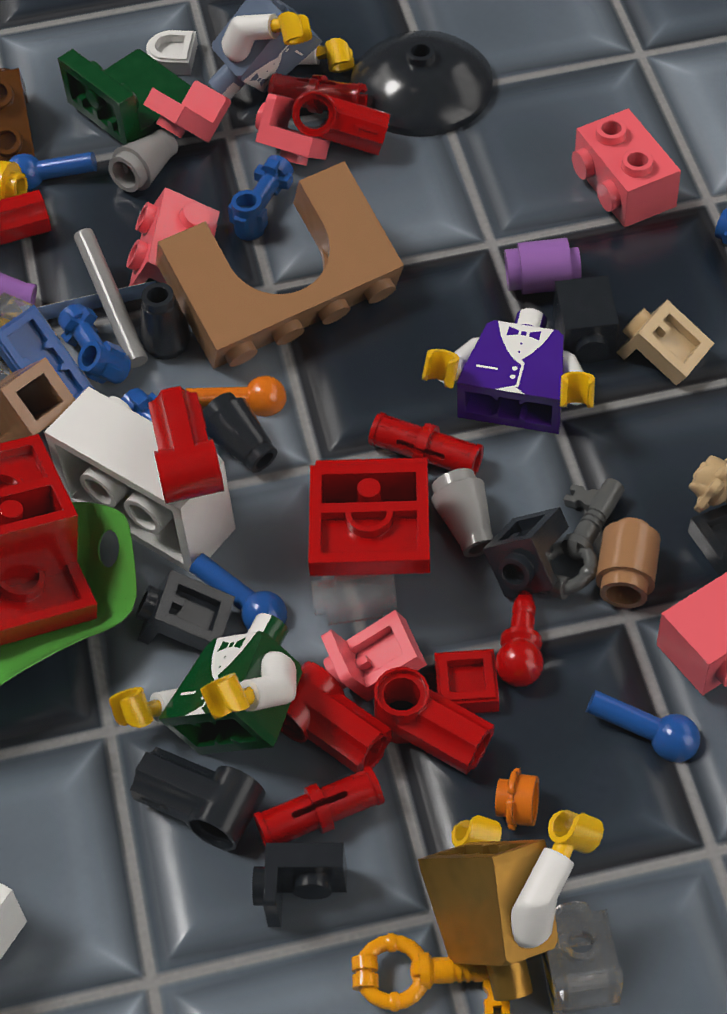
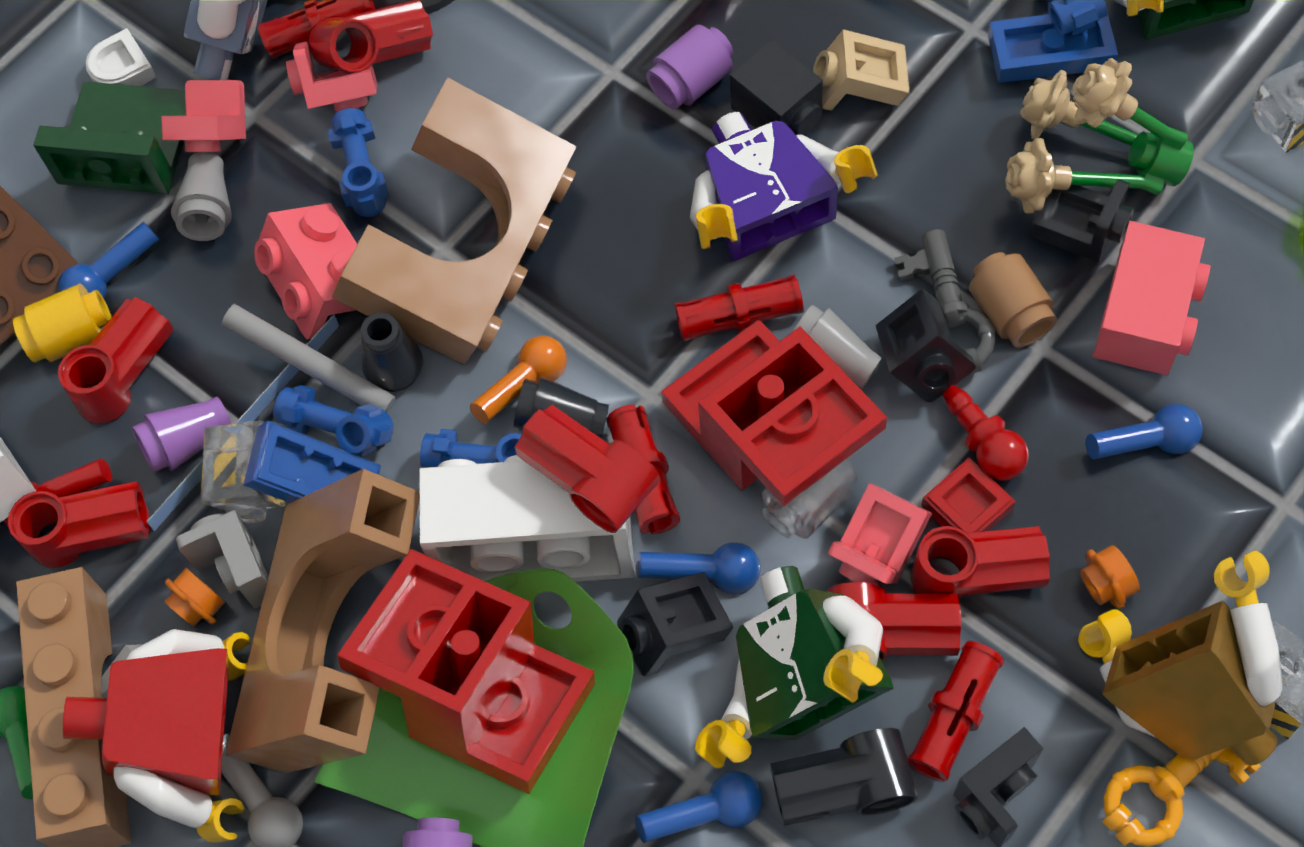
camera: 35 degrees left, 10 degrees up
(114, 758) = (732, 800): none -> blue bar
(258, 505) = (658, 509): none -> red pin

